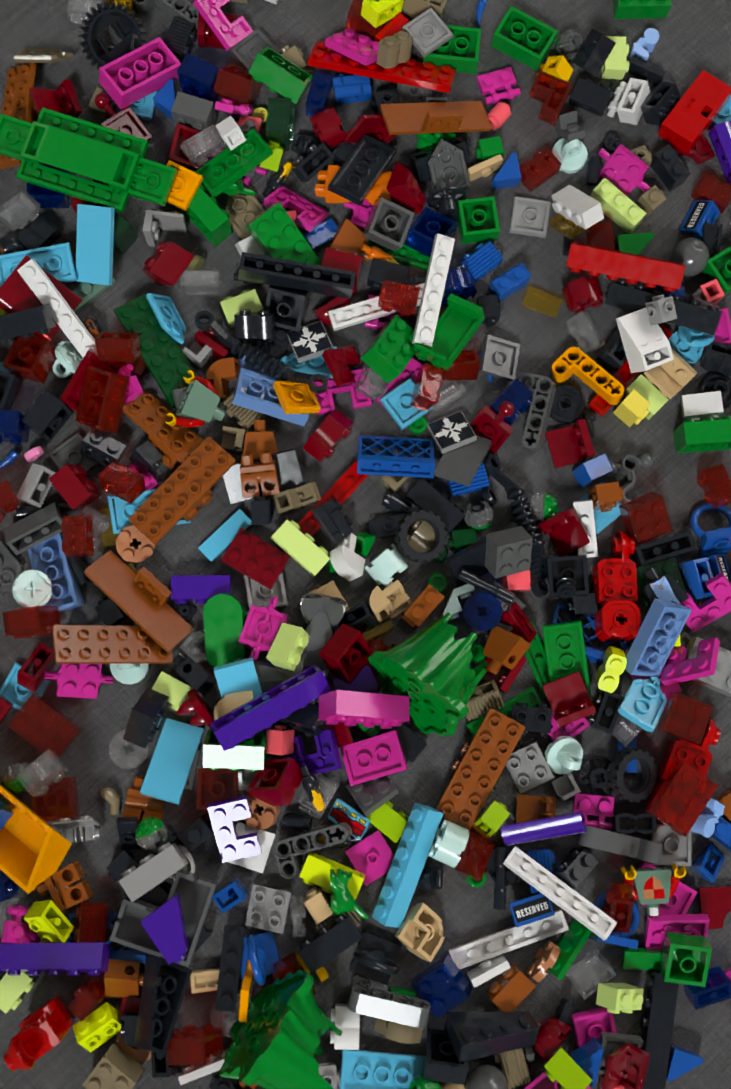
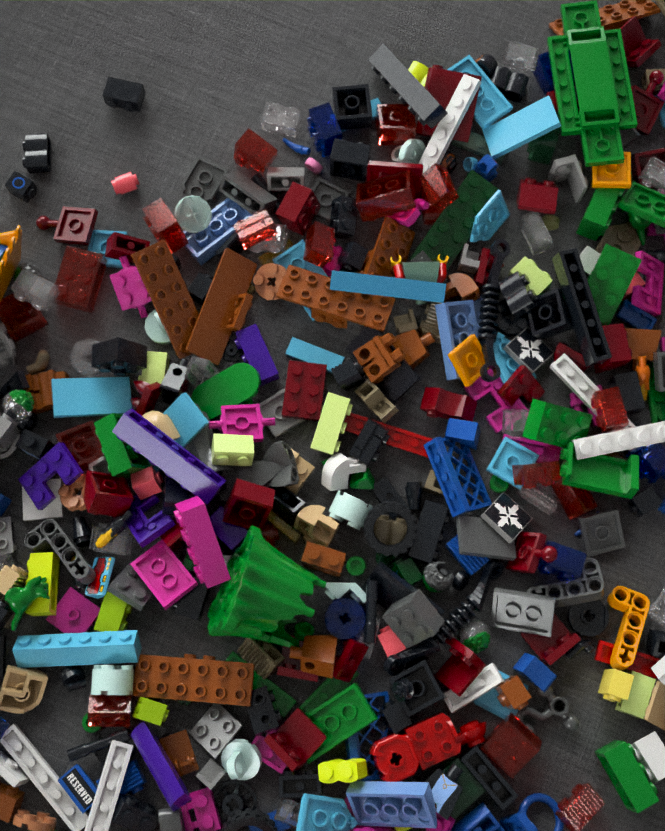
camera: 75 degrees right, 5 degrees down
(101, 308) = (469, 163): none -> medium azure hinge
(117, 295) = (487, 168): none -> blue leg
(195, 437) = (387, 286): none -> dark azure tile
(359, 434) = (463, 432): none -> blue slope
(540, 456) = (523, 612): none -> tile

